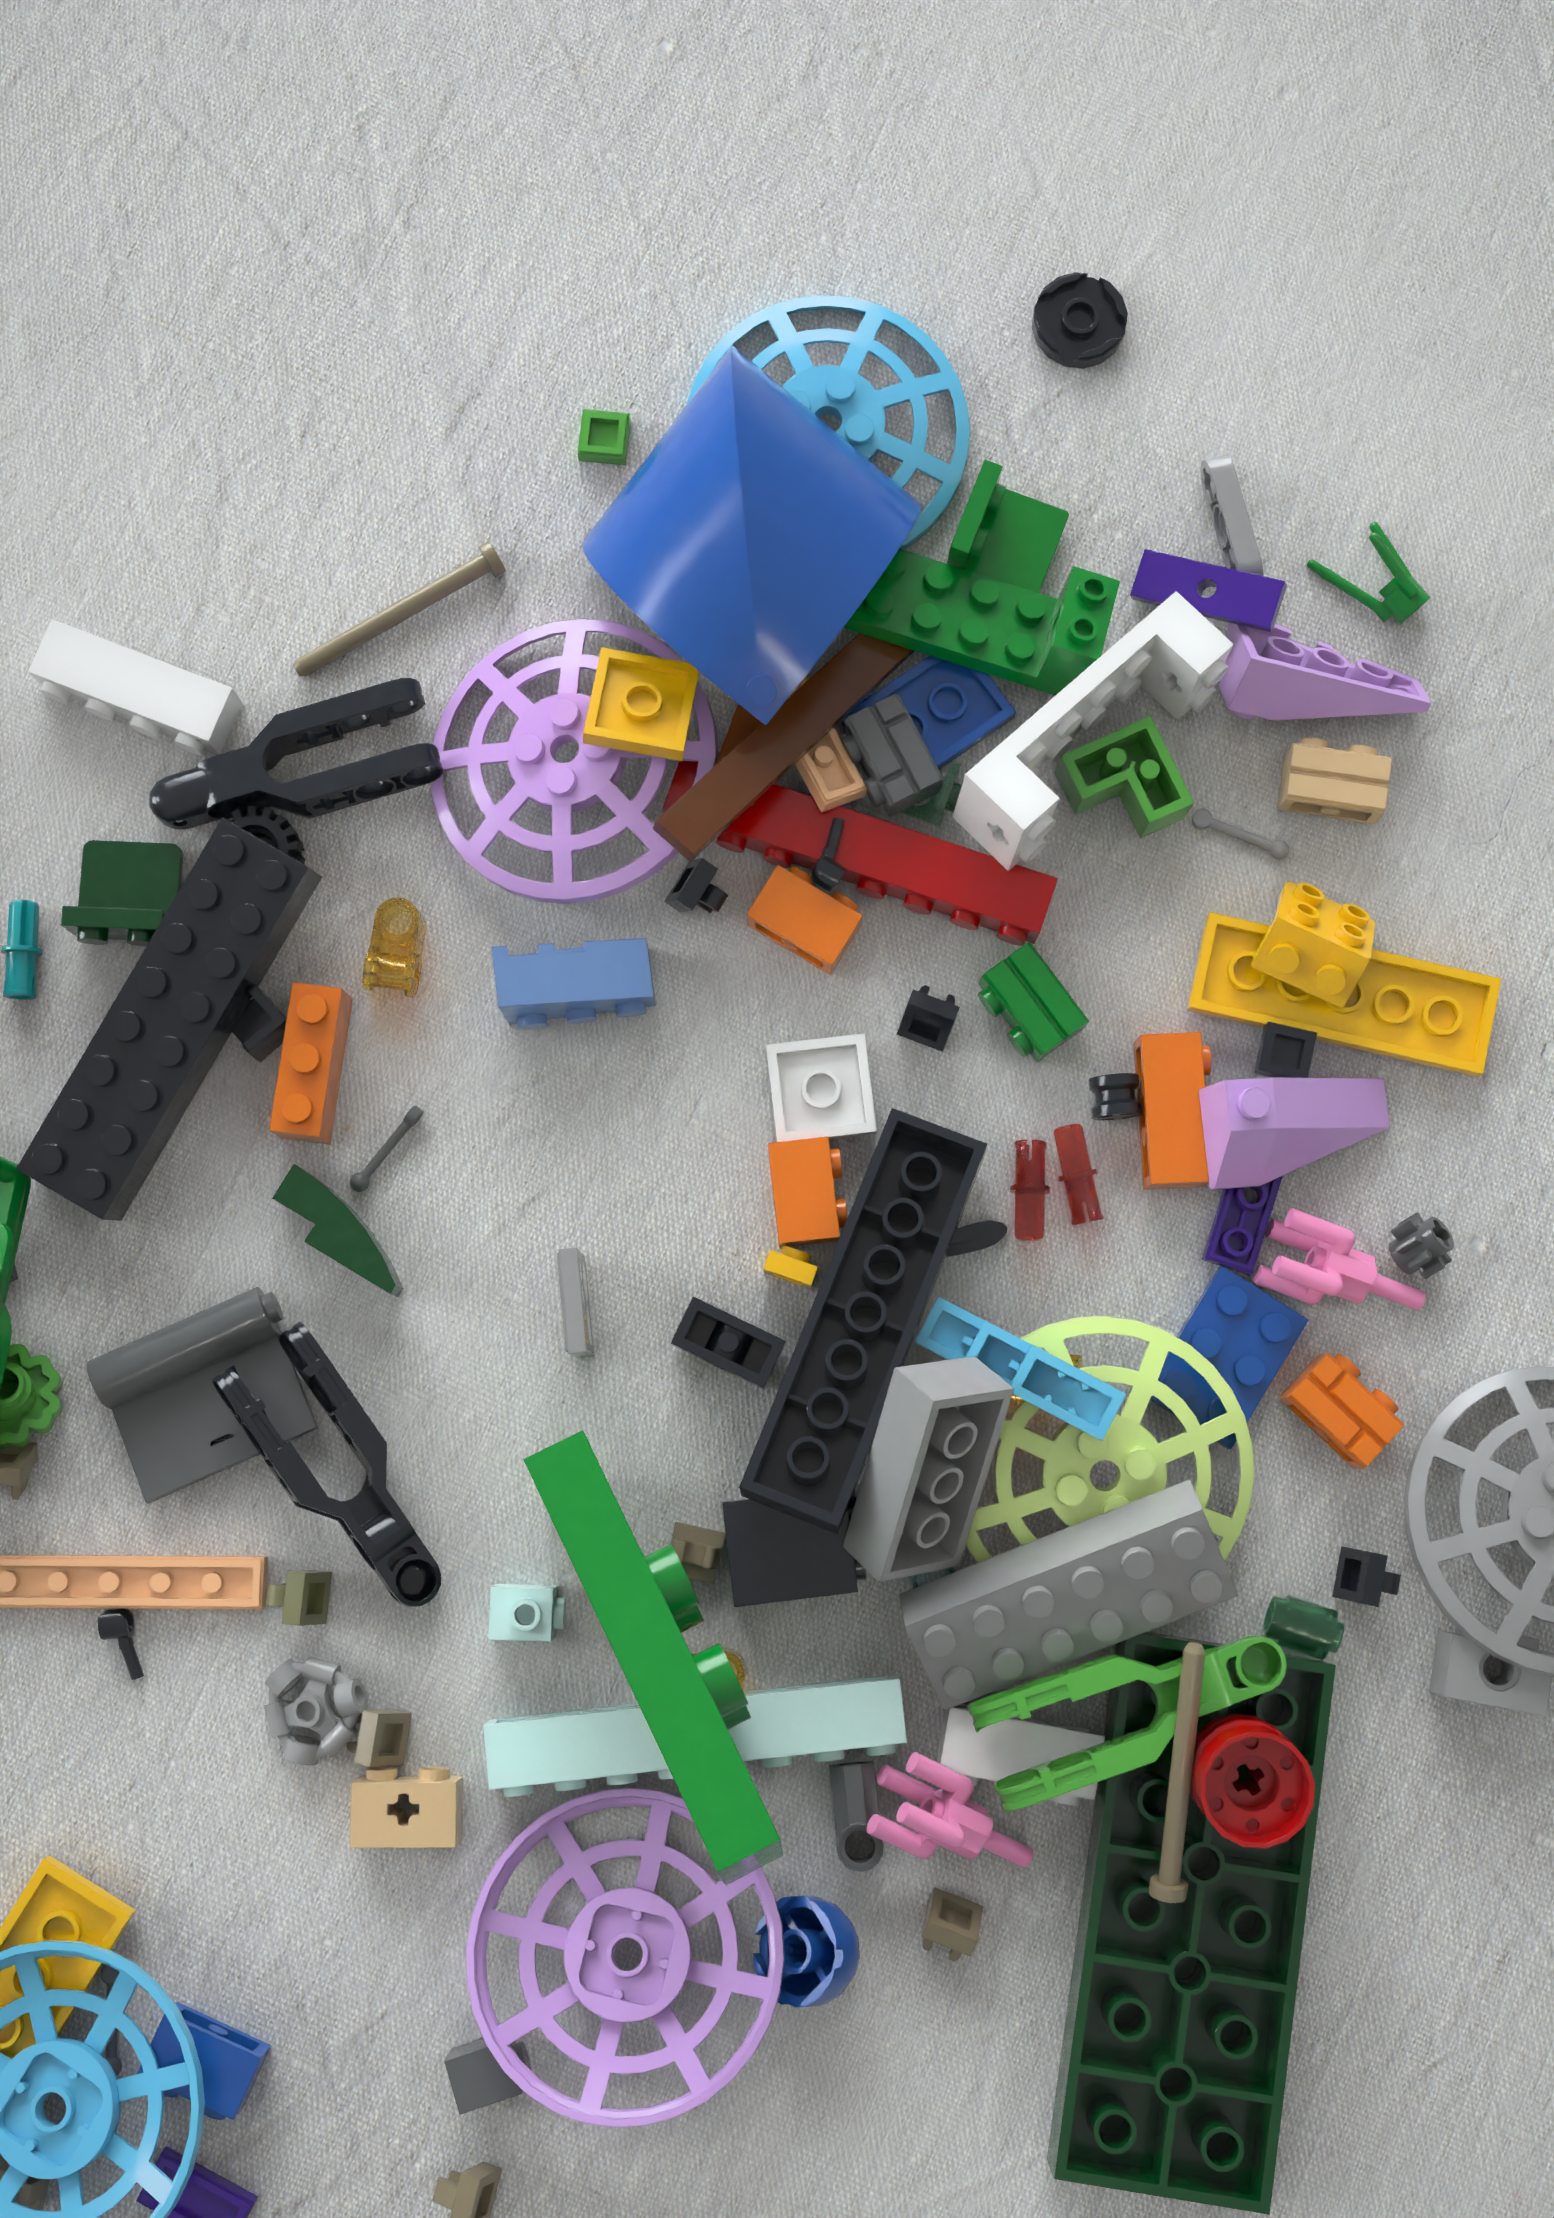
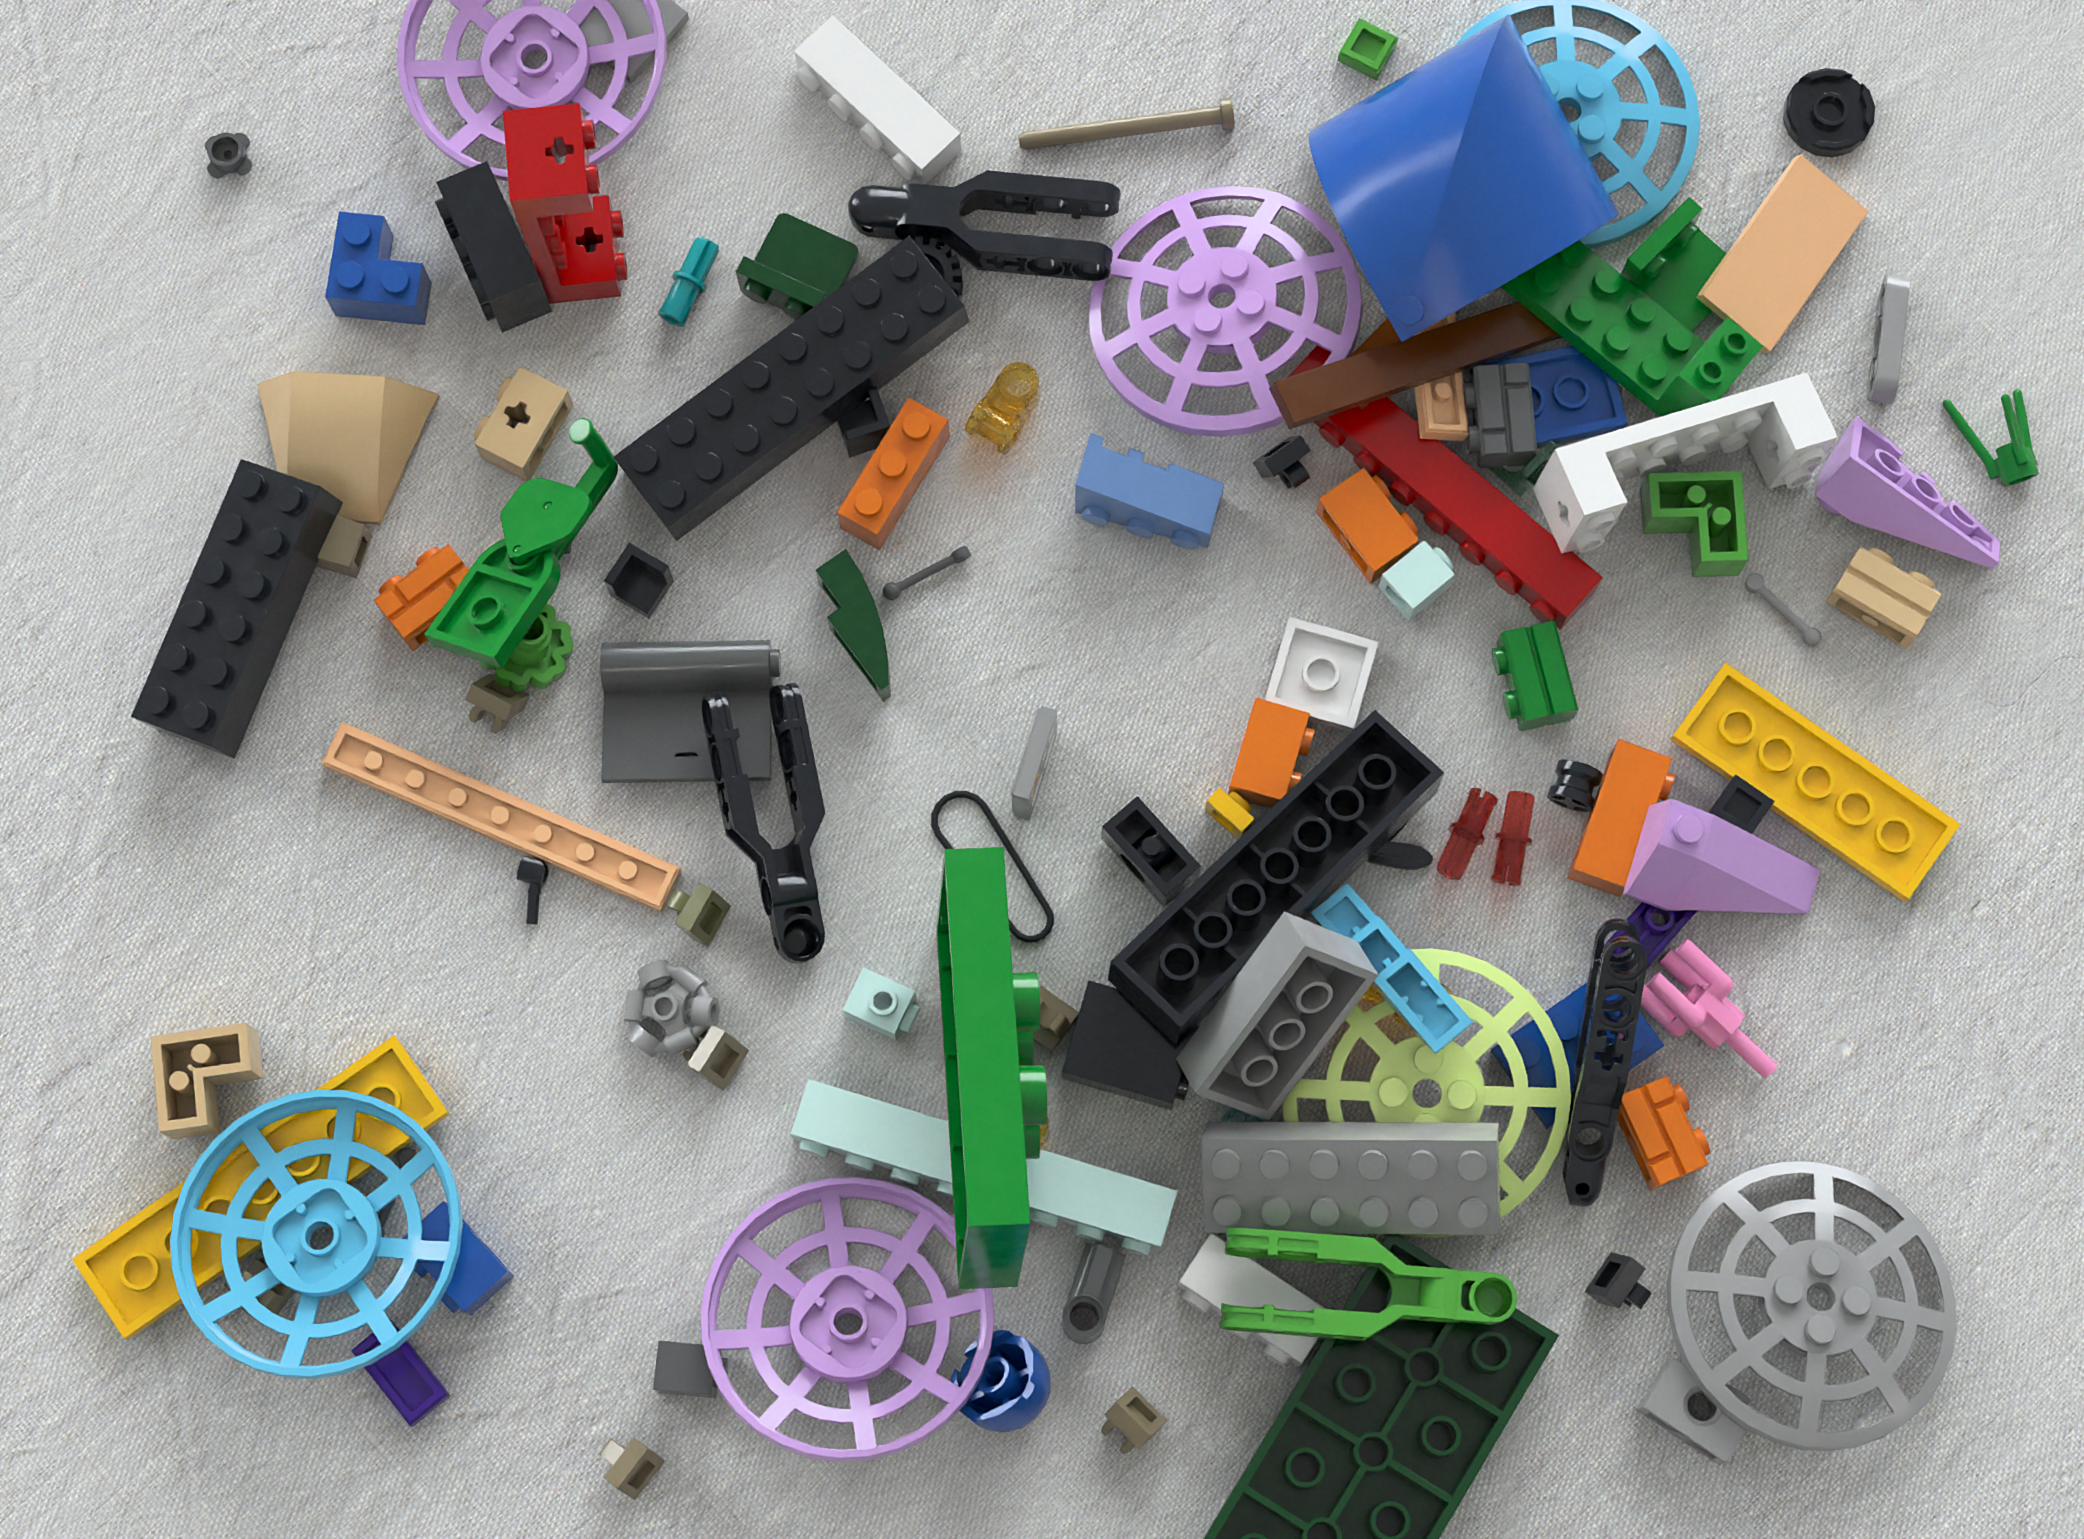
camera: 25 degrees right, 5 degrees down
(97, 1281) = (639, 580): none -> black panel
(378, 1822) = (684, 1125): tan brick -> none
(589, 1395) = (934, 824): none -> black piece
(641, 704) = (1303, 283): yellow plate -> none
(826, 871) = (1403, 489): black hand -> none
(877, 954) = (1417, 579): none -> light aqua brick
(928, 1019) = (1439, 653): black tile -> none
(943, 1815) = (1165, 1323): bright pink plant -> none
(1094, 478) = (1782, 253): none -> light nougat tile
(1168, 1884) = (1336, 1448): dark tan bar -> none
(1238, 598) = (1863, 404): dark purple tile -> none
(1266, 1391) = (1600, 1061): none -> black piece
(1273, 1800) = (1463, 1404): red wheel -> none
(1303, 1626) = (1548, 1301): clear green brick -> none
(1316, 943) = (1806, 725): yellow bracket -> none
(1421, 1245) = (1790, 1022): dark grey gear -> none

